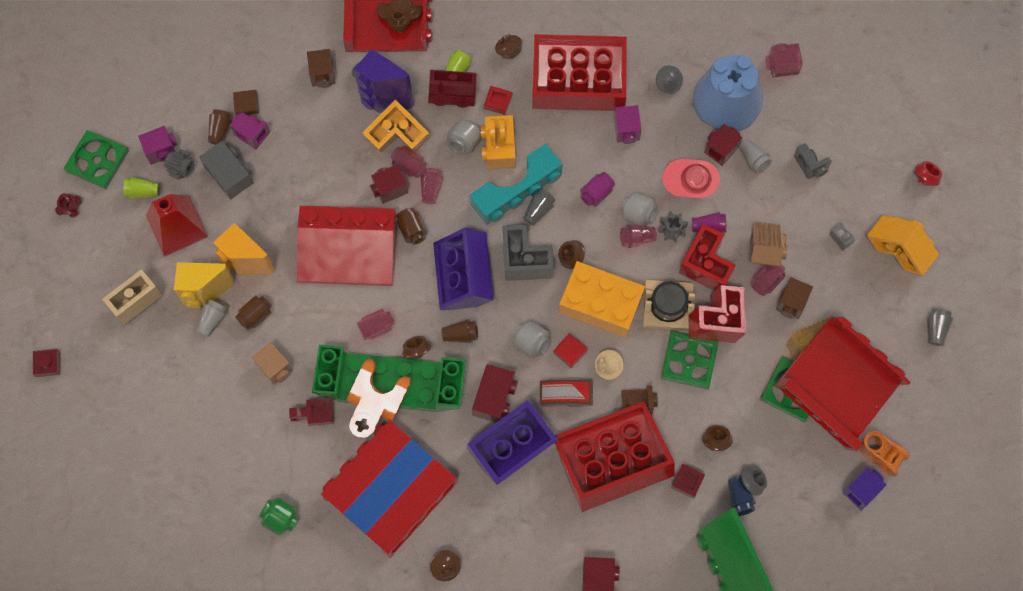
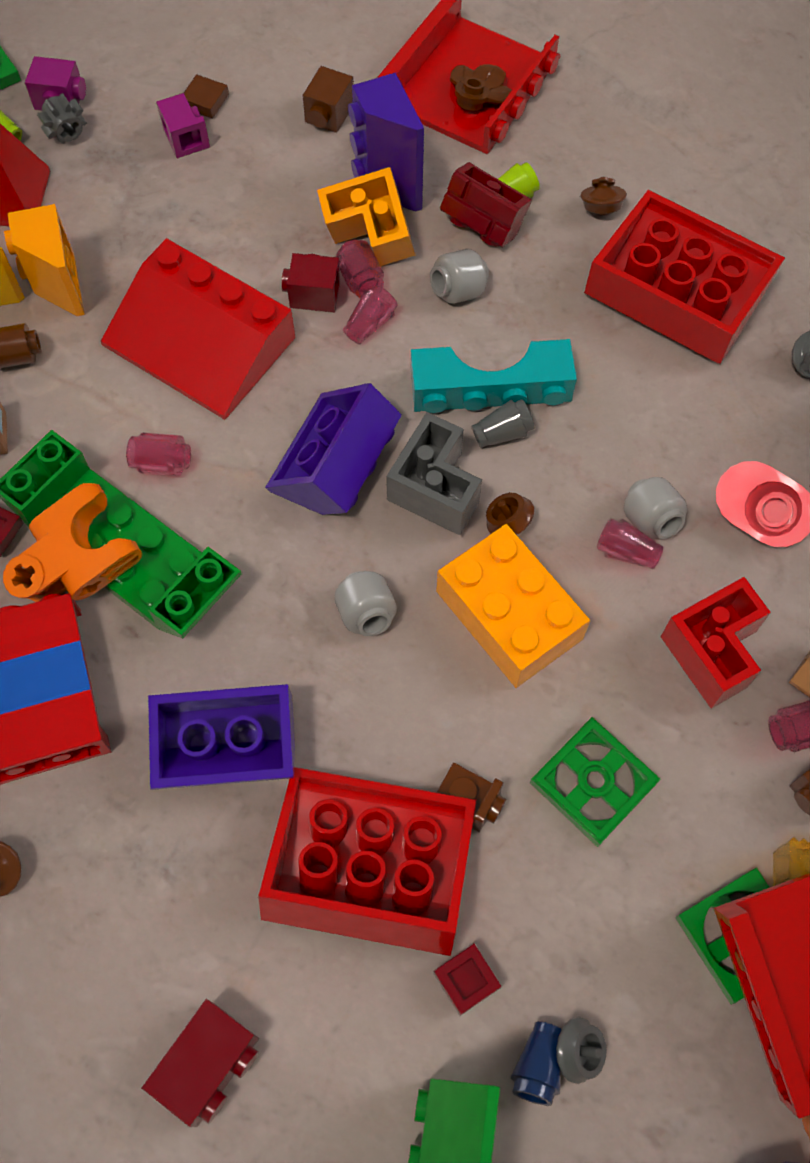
camera: 30 degrees right, 5 degrees down
(218, 125) = (143, 104): reddish brown cone -> none
(226, 169) = (115, 156): dark grey brick -> none
(411, 226) = (303, 352): reddish brown brick -> none
(416, 347) = (190, 517): reddish brown hat -> none
(461, 332) = (271, 534): reddish brown cone -> none
(493, 393) = (254, 647): dark red brick -> none
(498, 100) = (542, 259): red tile -> none
(499, 142) = (506, 308): light orange brick -> none
(566, 392) = (365, 715): slope -> none
(570, 350) = (415, 655): red tile -> none
(597, 189) = (608, 446): magenta brick -> none
(609, 364) = (459, 711): tan hat -> none
(627, 124) = (712, 381): magenta brick -> none
(668, 222) = (693, 561): dark grey gear -> none
(668, 303) = (614, 673): piece -> none
(716, 221) = (768, 588): magenta cone -> none
(717, 438) = (561, 938): reddish brown hat -> none
(723, 320) = (688, 747): red brick -> none

